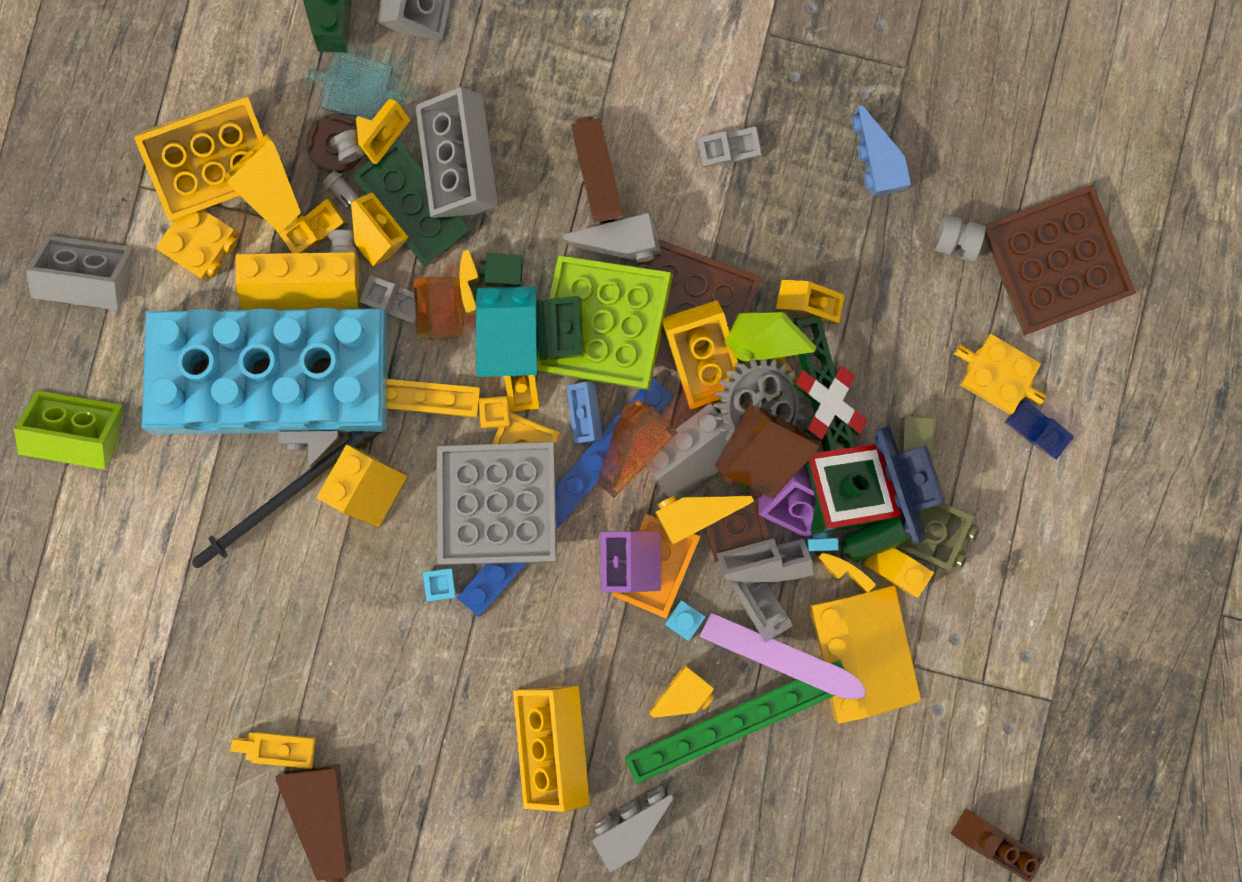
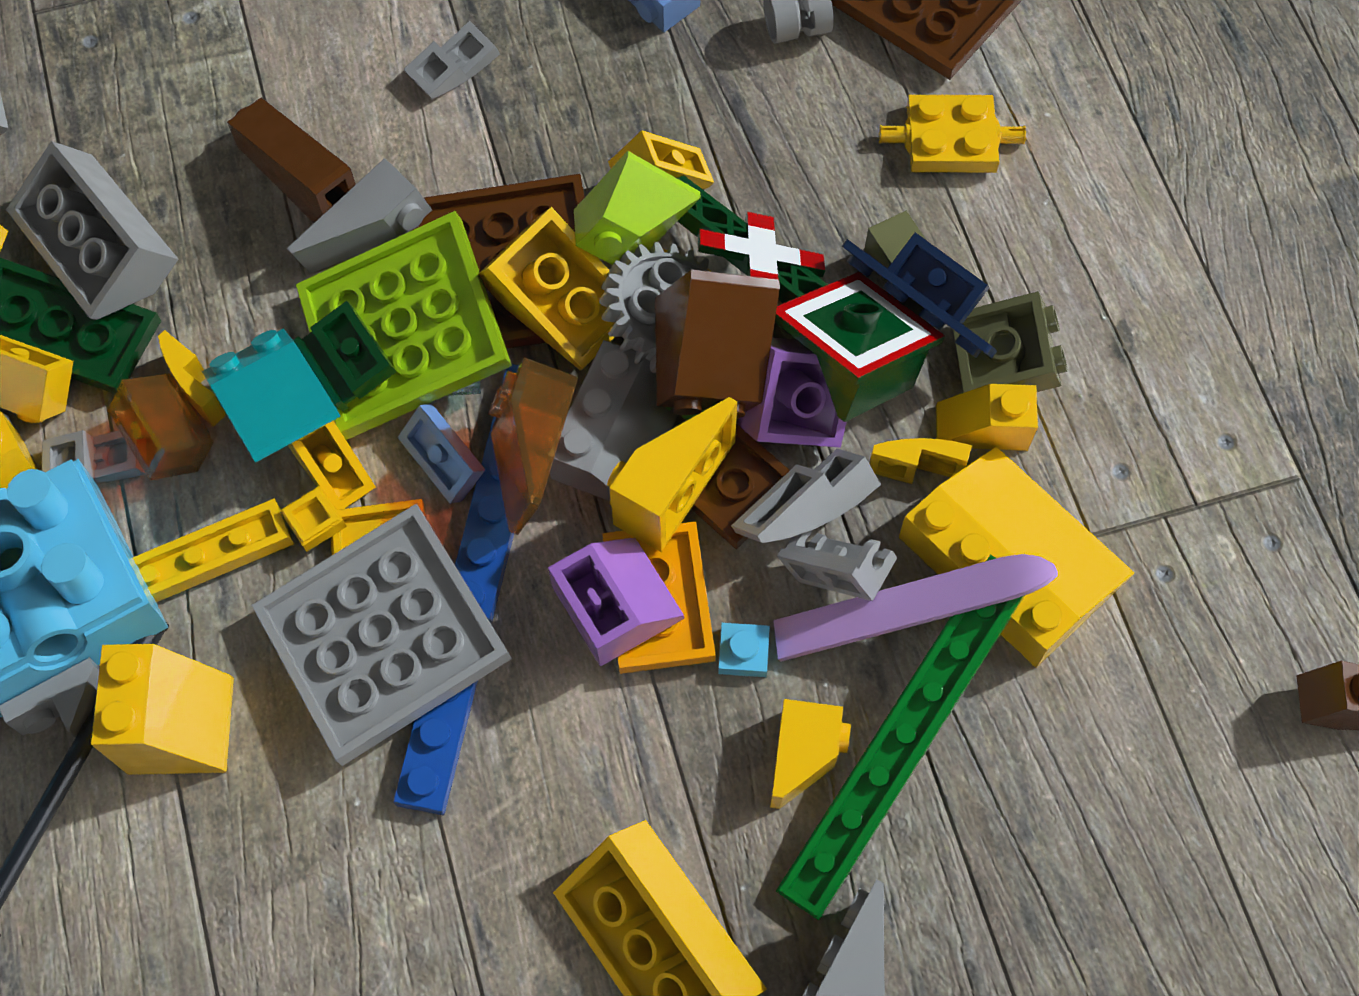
camera: 30 degrees left, 20 degrees down
(439, 584) = (357, 797): medium azure plate -> none
(502, 270) = (223, 332): dark green brick -> none
(822, 542) = (863, 436): medium azure plate -> none
(875, 539) = (933, 391): dark green brick -> none
(1039, 429) = (1044, 171): clear blue slope -> none

